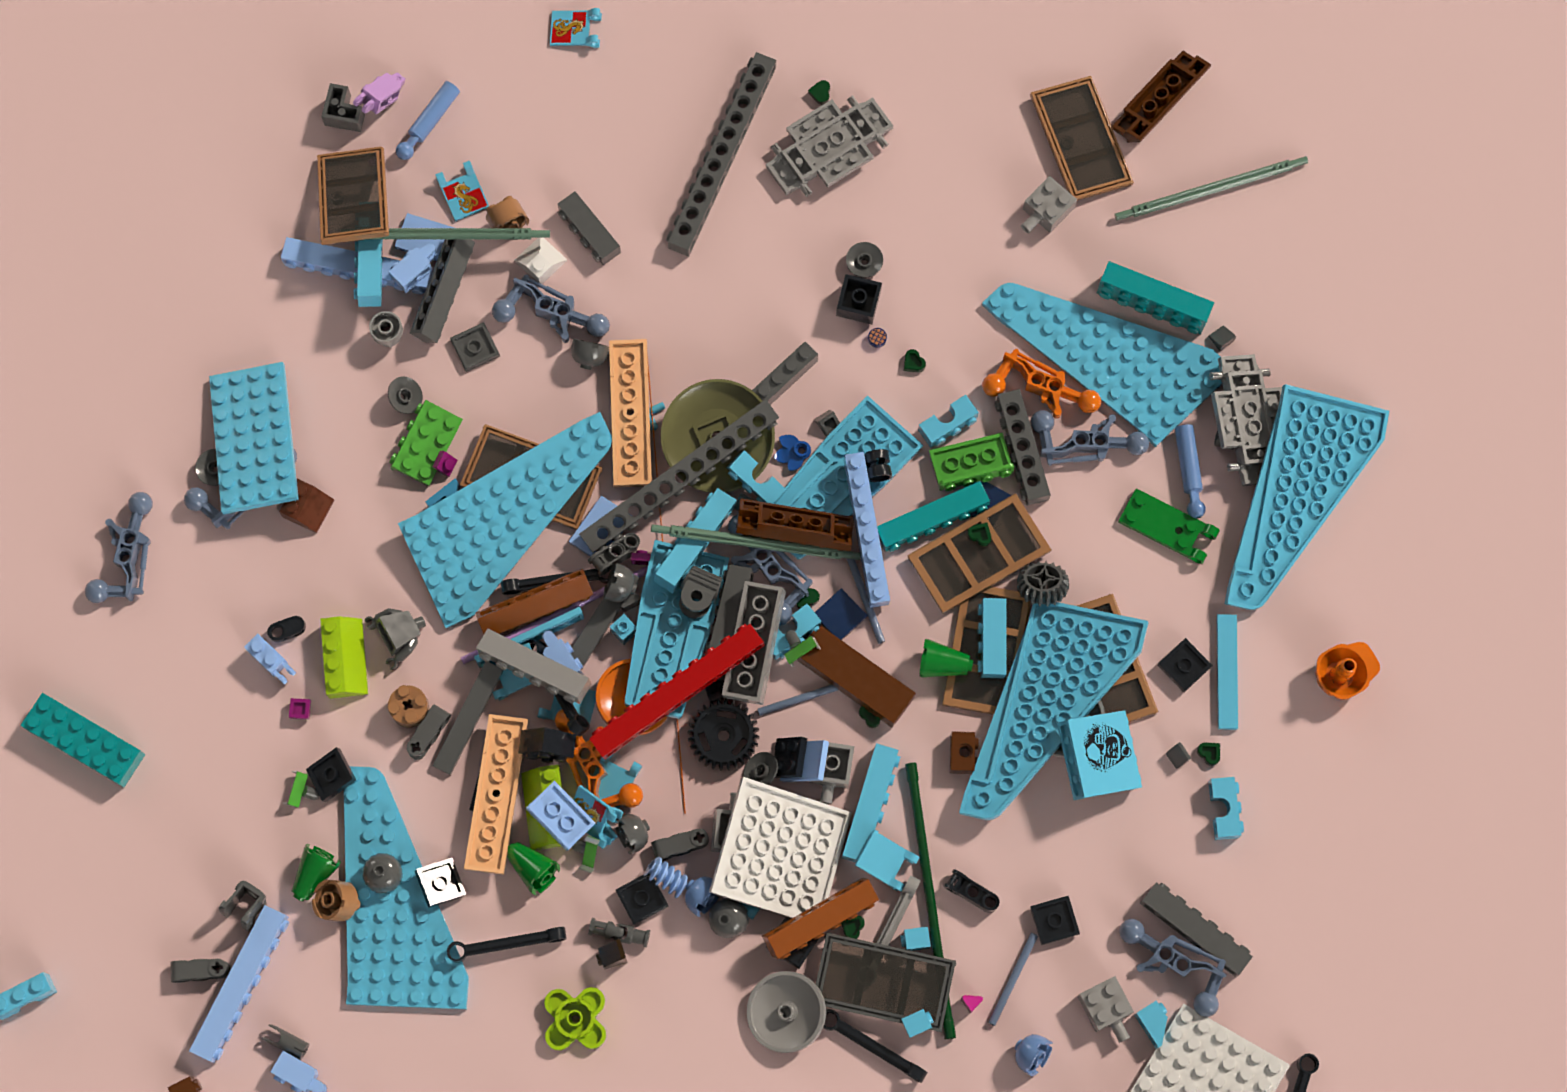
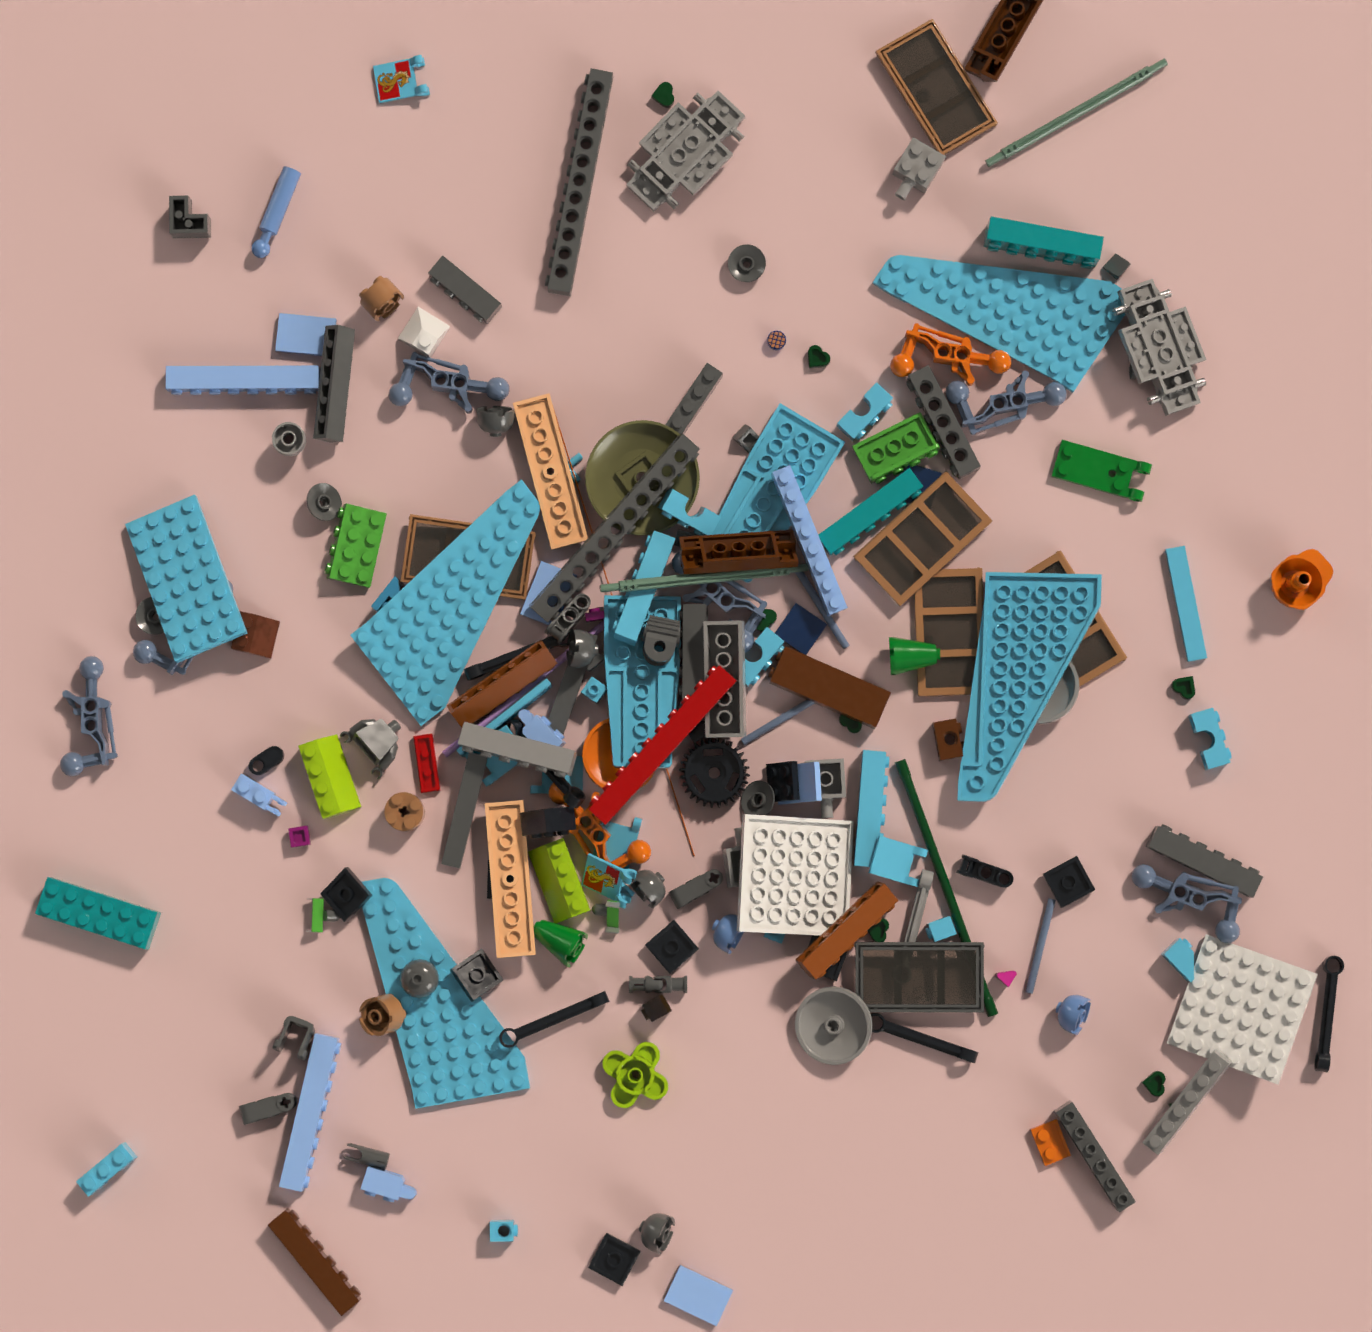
camera: 10 degrees left, 10 degrees up
(313, 868) = (353, 990): green cone -> none
(352, 195) = (222, 309): clear smoke door -> none
(369, 272) = (255, 368): medium azure brick -> none
(380, 93) = (222, 194): lavender hinge -> none
(413, 267) = (301, 371): light blue hinge -> none
(428, 731) = (429, 830): dark grey piece -> none
(442, 665) = (426, 763): none -> red tile
(444, 463) = (380, 562): magenta plate -> none
(463, 193) = (330, 280): flag -> none
(466, 233) = (325, 330): sand green axle -> none
(475, 347) = (380, 436): dark grey tile -> none
(560, 815) = (577, 888): light blue tile -> none
(667, 875) = (692, 921): light blue piece -> none
(728, 918) = (758, 949): dark grey cylinder -> none
(789, 452) = (715, 476): blue plate -> none
(799, 648) = (768, 673): bright green piece -> none
(859, 299) = (750, 306): black brick -> none
(878, 465) = (809, 480): black wheel -> none
(917, 1022) = (960, 1010): medium azure brick -> none
(980, 533) = (920, 520): dark green tile -> none
(992, 638) = (954, 621): medium azure brick -> none
(1043, 583) = (1003, 557): dark grey gear -> none
(1099, 755) = (1080, 716): medium azure panel -> none
(1107, 1006) = (1135, 954): light grey brick -> none
(1178, 755) = (1154, 696): dark grey slope -> none
(1184, 665) = (1144, 606): black plate -> none
(1190, 469) = (1111, 409): medium blue piece -> none
(1307, 468) = (1226, 382): medium azure wing -> none

